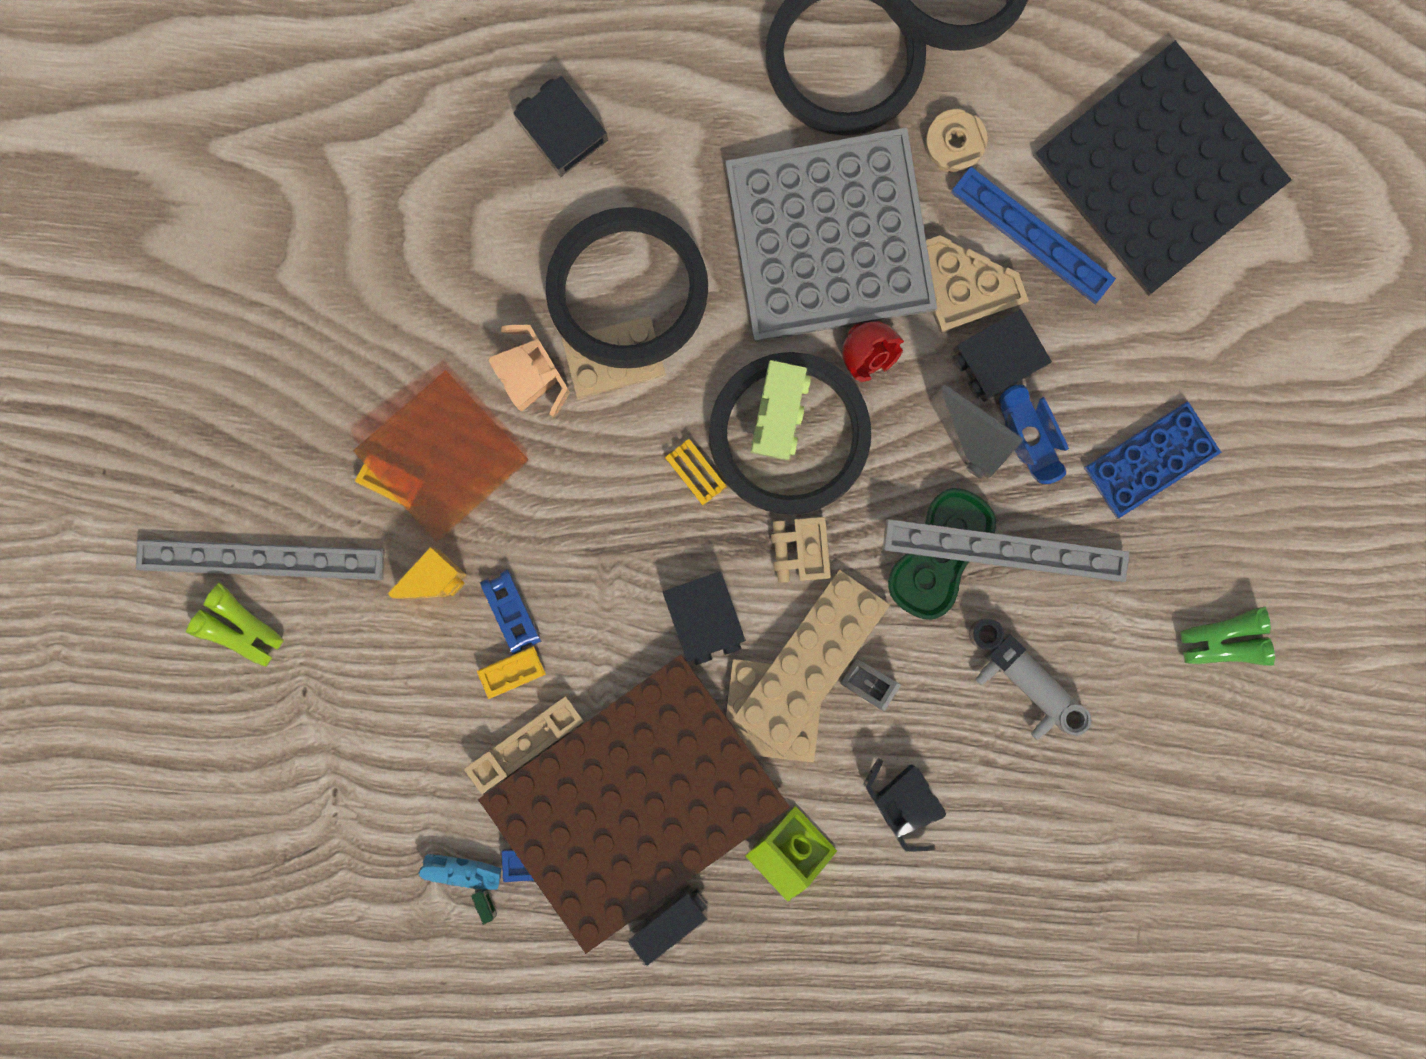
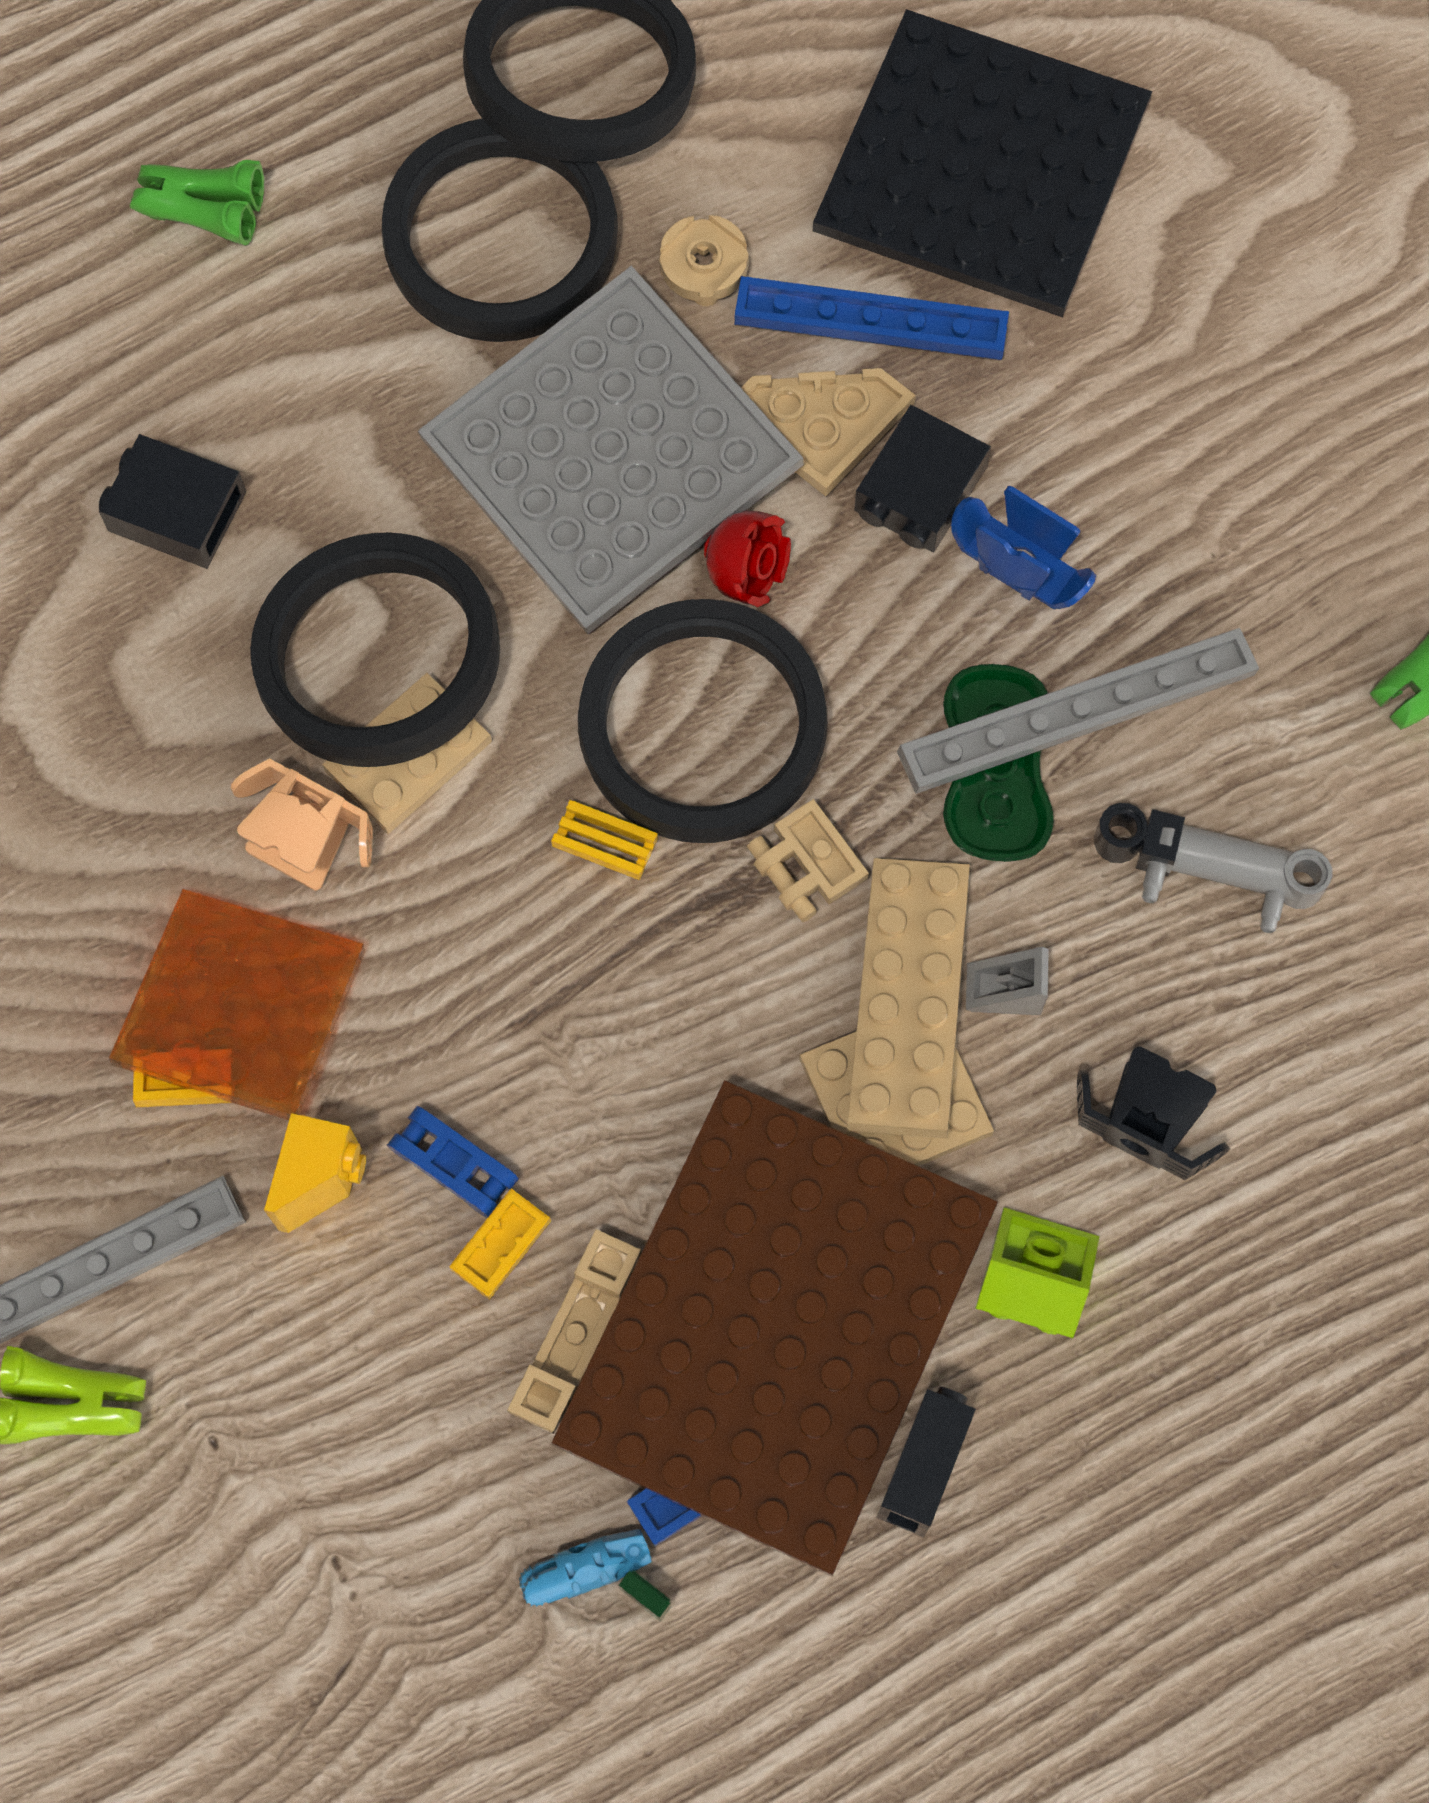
camera: 30 degrees left, 15 degrees down
(704, 618) = (728, 1018): black brick -> none
(780, 410) = (672, 688): yellowish green wedge -> none
(975, 434) = (942, 576): dark grey slope -> none
(1152, 460) = (1195, 506): blue tile -> none

